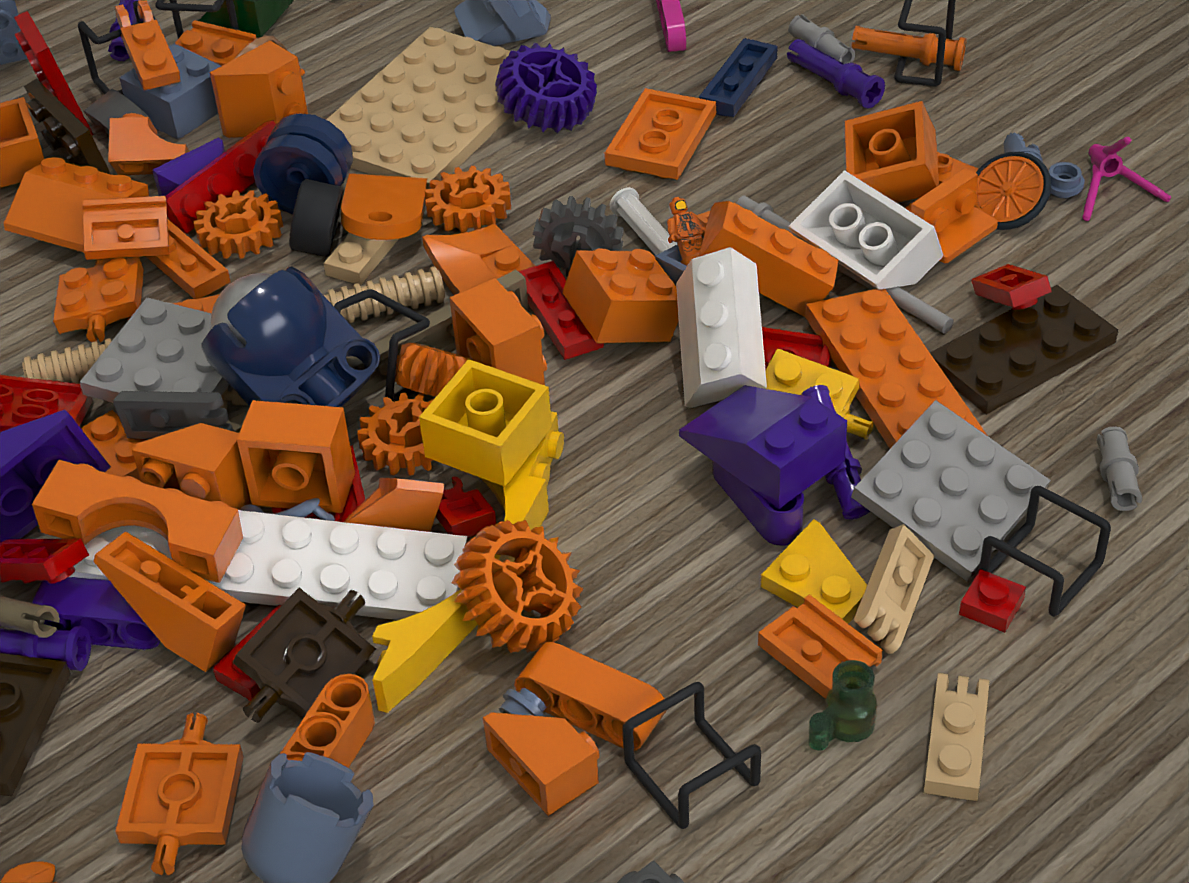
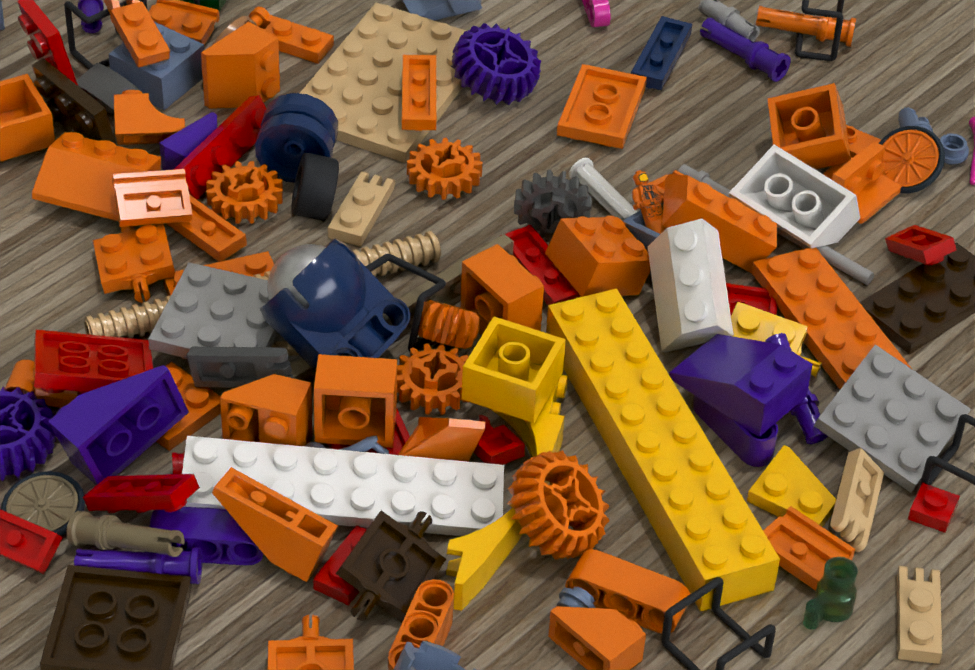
camera: 10 degrees left, 0 degrees up
(87, 502) = (195, 442): orange arch -> none
(331, 63) = (293, 37): none -> orange plate
(383, 206) = (372, 175): orange tile -> none
(451, 117) = (419, 92): none -> orange plate
(474, 257) = (461, 224): orange plate -> none
(663, 528) = (662, 450): none -> yellow brick

